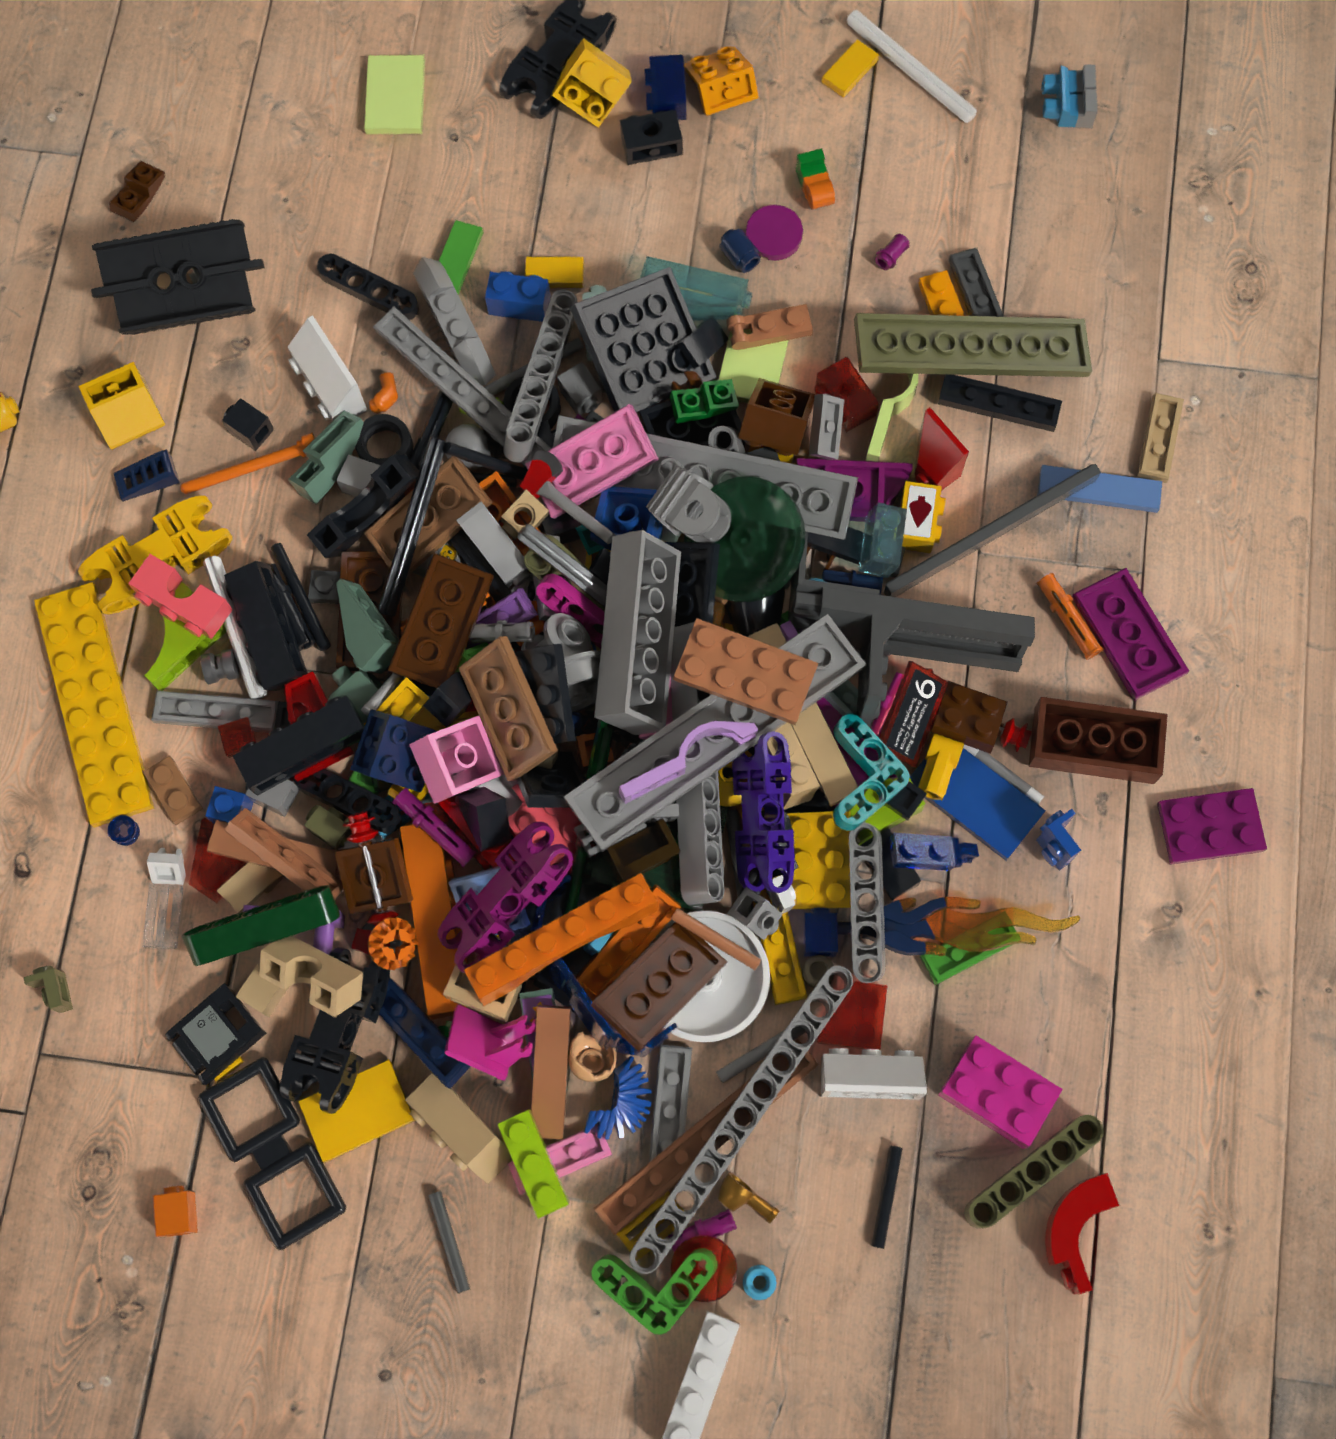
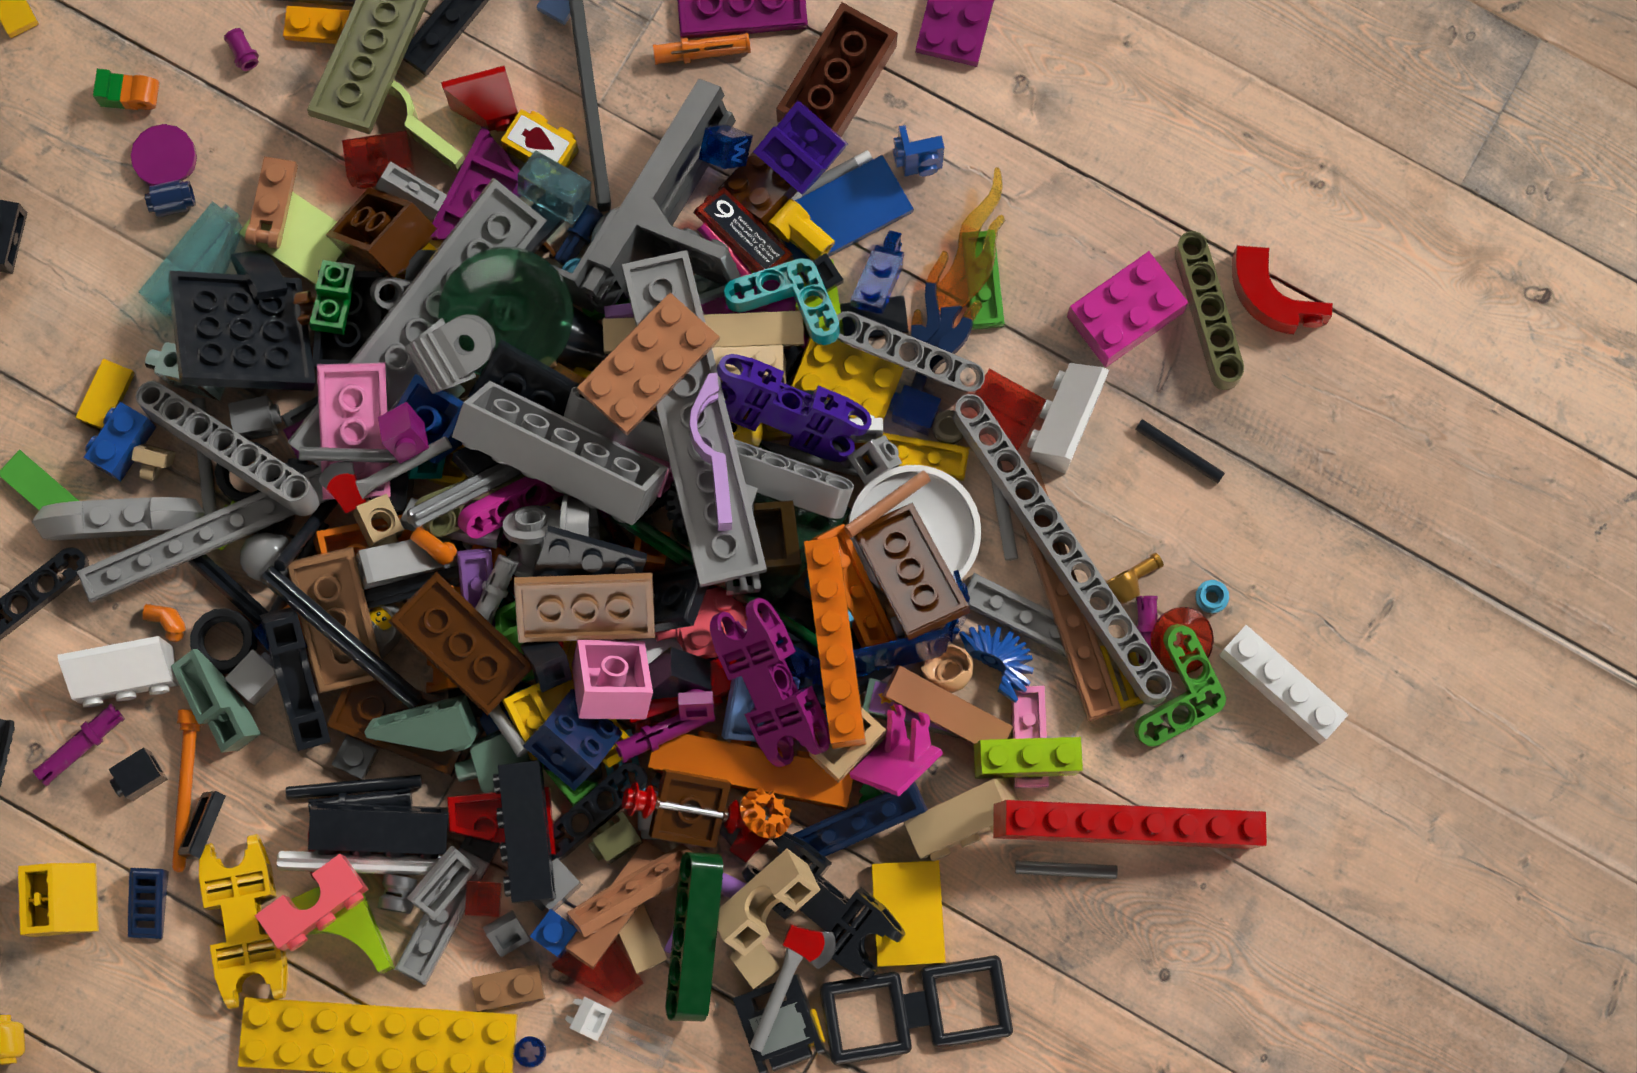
camera: 70 degrees left, 5 degrees up
(216, 768) = (506, 933): none -> dark grey plate
(222, 489) = (201, 825): none -> black tile
(263, 703) = (438, 879): none -> light grey tile
(267, 375) = (81, 742): none -> magenta pin
(288, 1021) = (800, 943): none -> piece
(464, 842) = (696, 705): none -> magenta plate
(502, 1286) = (1129, 824): none -> red brick
(513, 327) = (153, 460): none -> tan tile
(515, 561) = (440, 551): none -> orange arm
(568, 465) = (346, 454): none -> dark grey bar
(602, 498) = (403, 432): none -> magenta brick
(985, 668) = (725, 146): none -> clear blue brick
(1013, 732) = (800, 147): none -> dark purple slope

